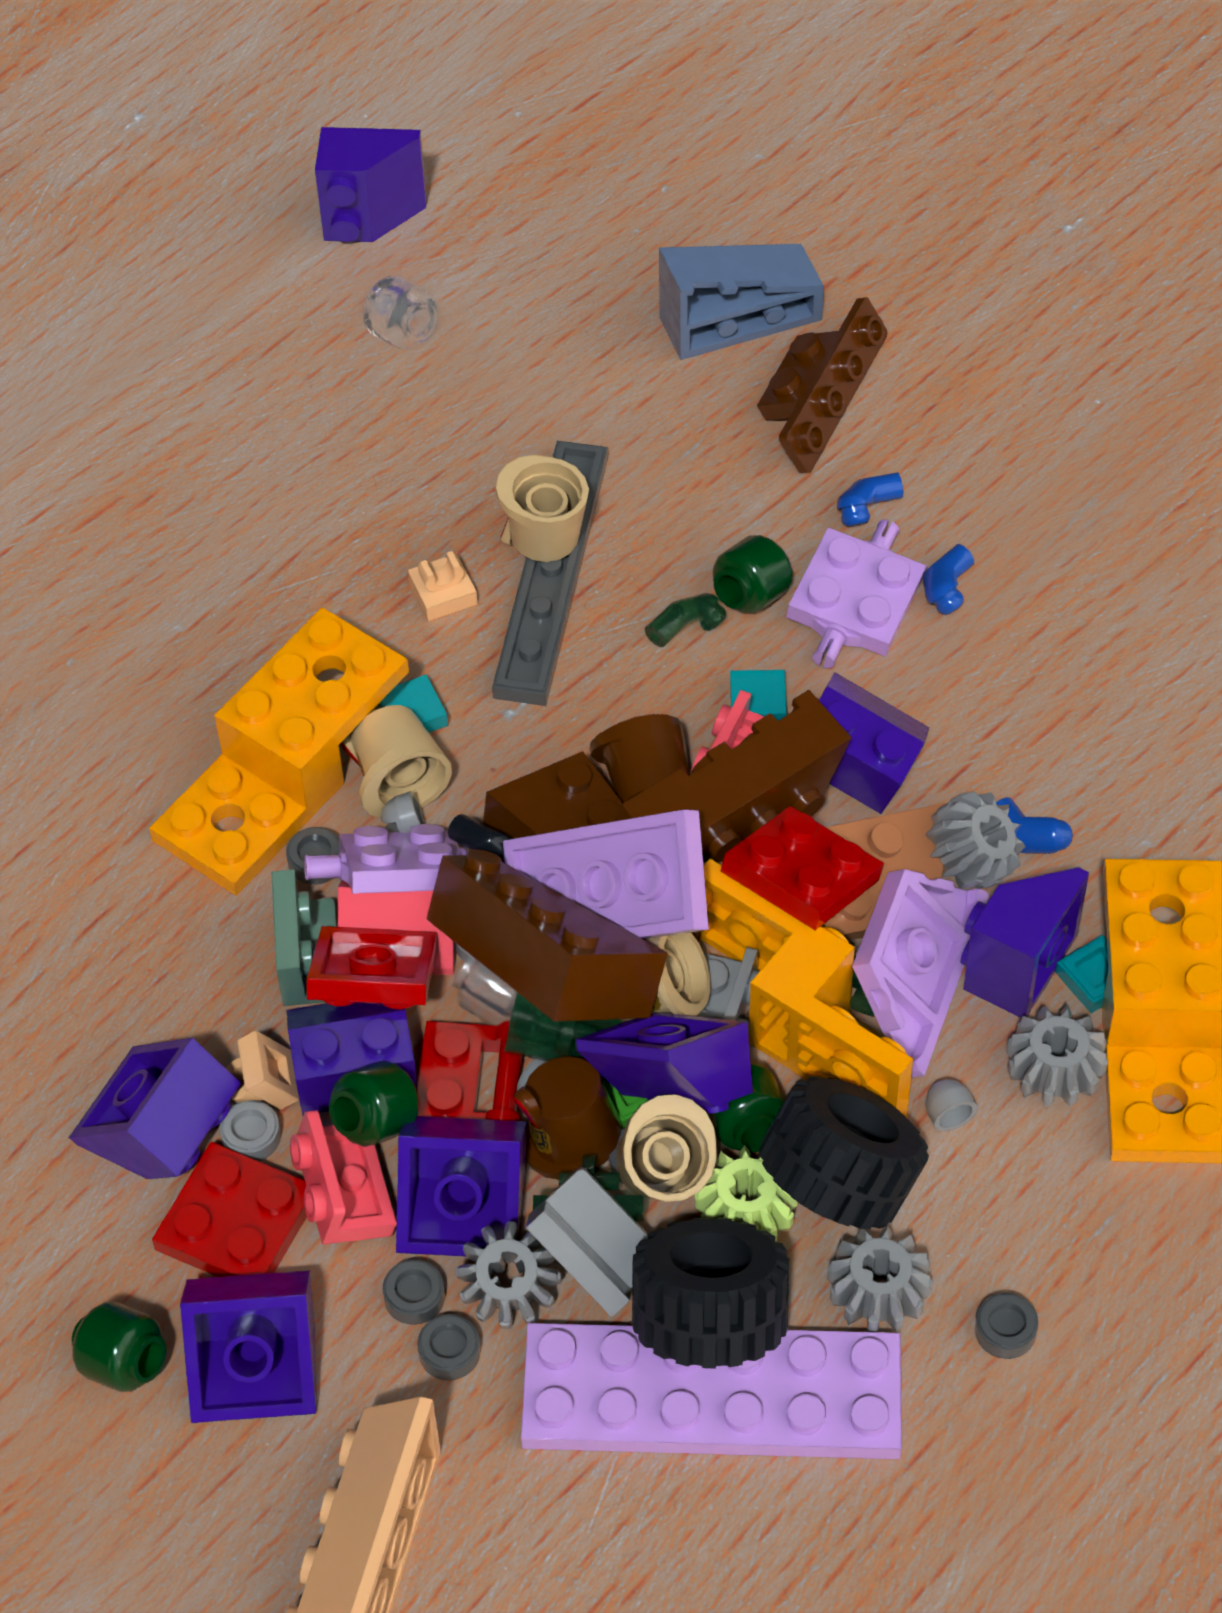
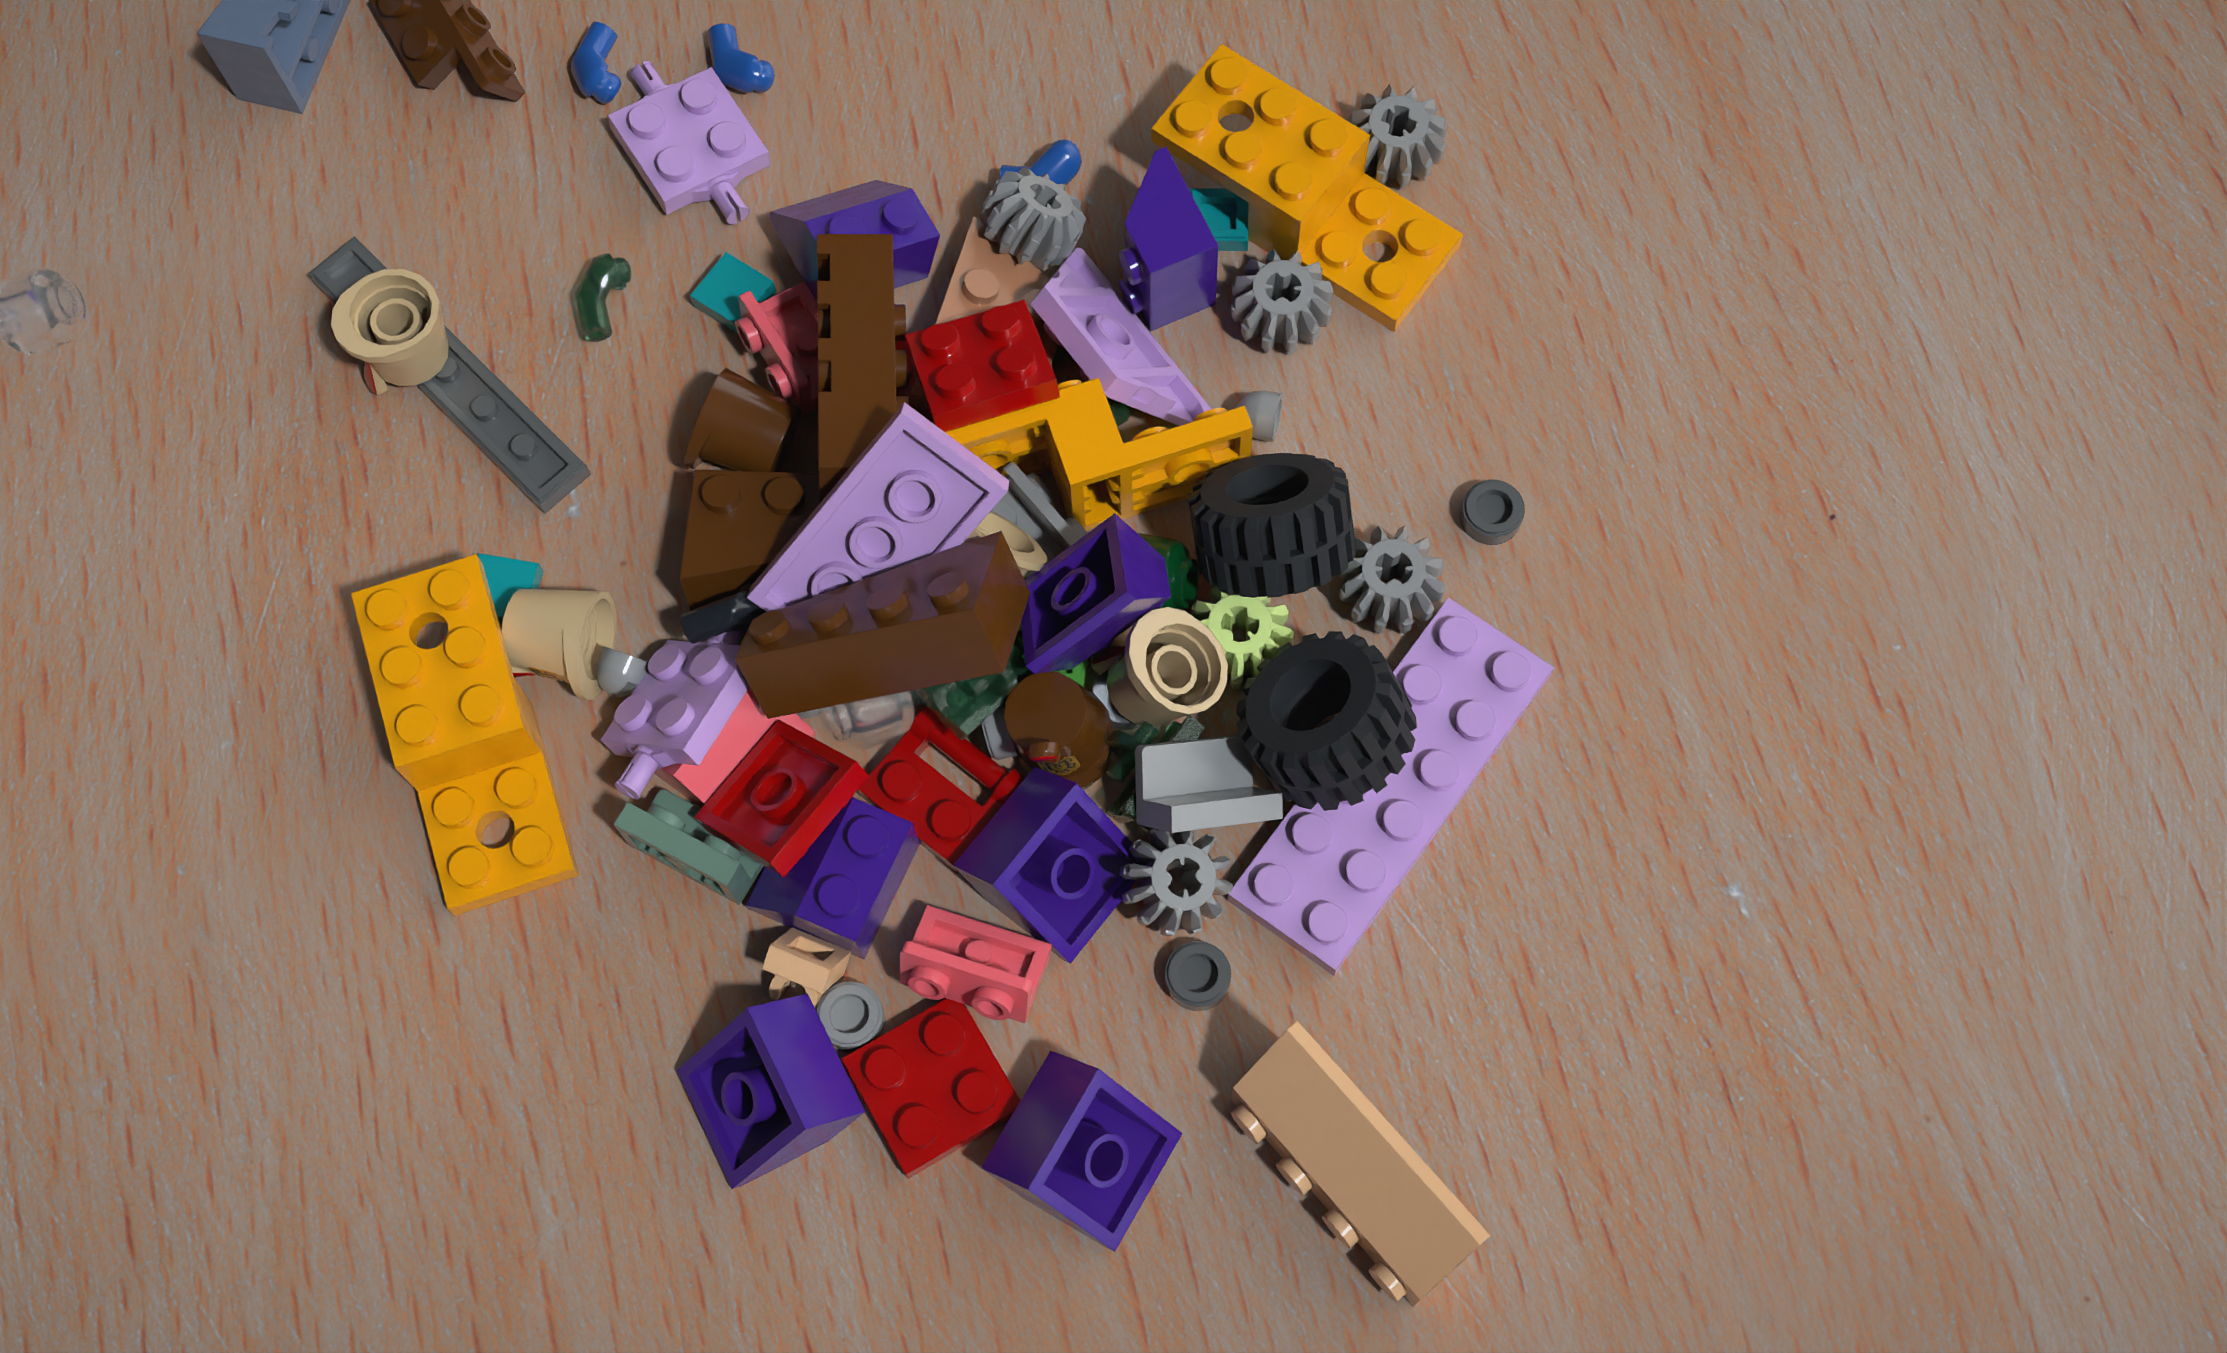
camera: 55 degrees left, 15 degrees up
(118, 1347) = (1001, 1273): dark green head -> none
(310, 842) = (591, 776): dark grey tile -> none
(373, 1103) = (929, 886): dark green head -> none
(413, 1292) = (1121, 972): dark grey tile -> none
(442, 586) = (386, 477): light nougat tile -> none
(752, 574) = (604, 209): dark green head -> none

